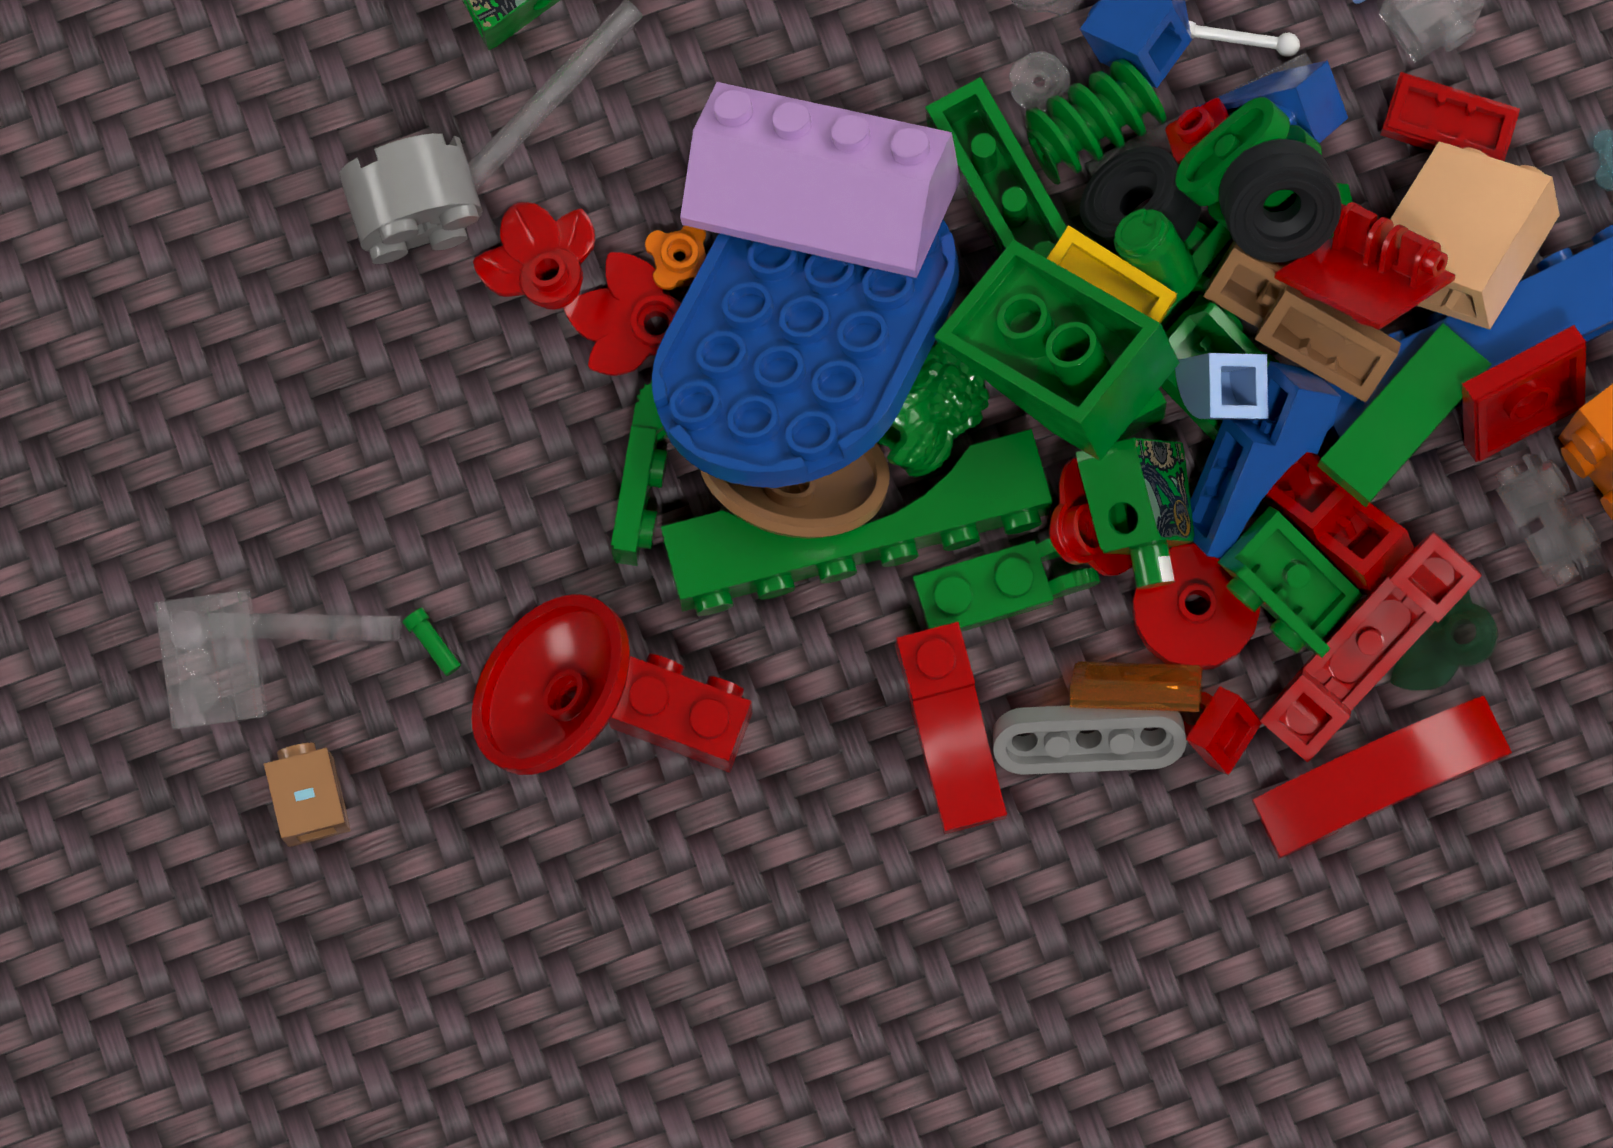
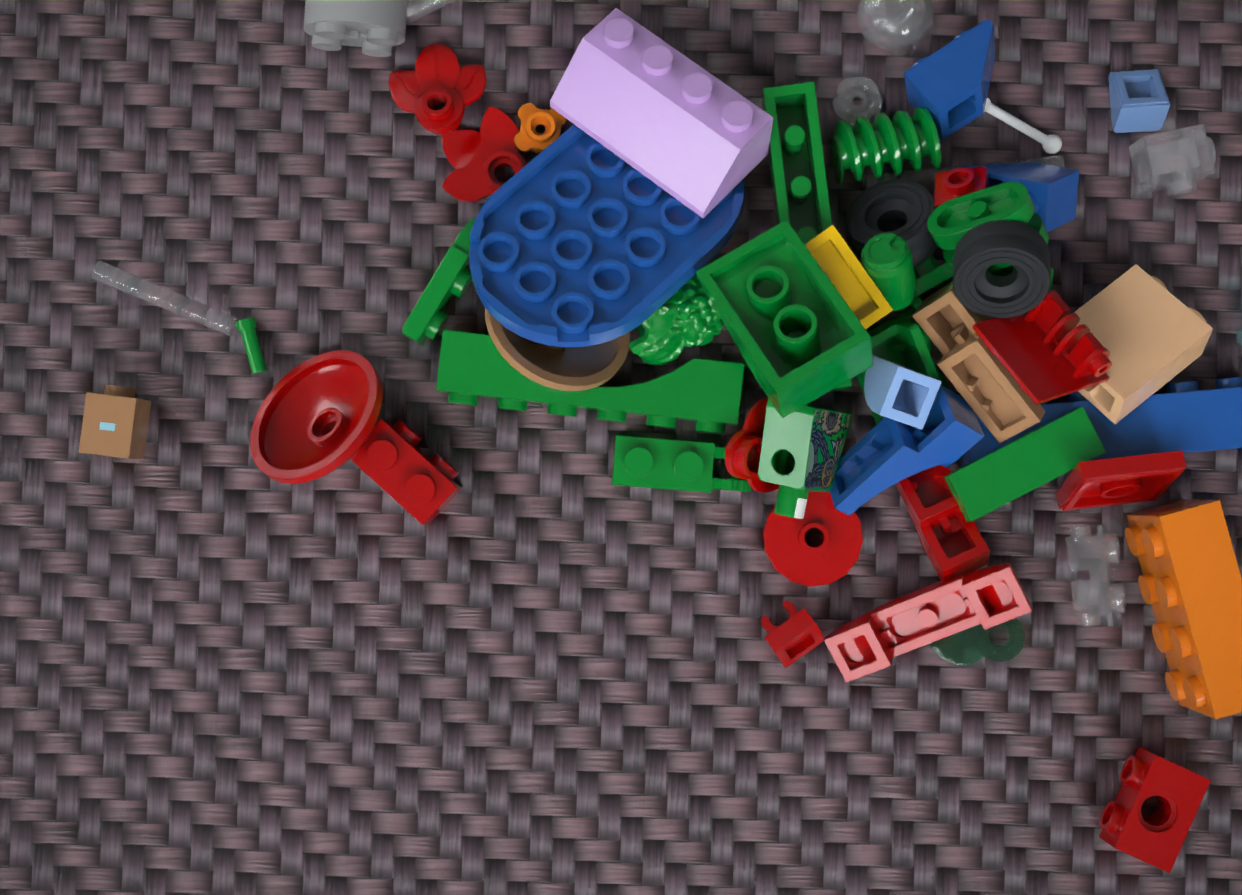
camera: 20 degrees right, 10 degrees up
(211, 659) = (84, 296): clear plate -> none
(950, 727) = (598, 558): red slope -> none
(1060, 747) = (695, 604): light grey plate -> none
(1136, 686) = (744, 582): clear orange tile -> none
(1289, 579) = (888, 548): green bracket -> none
(1381, 775) = (895, 714): red slope -> none
(1432, 112) = (1140, 240): red plate -> none

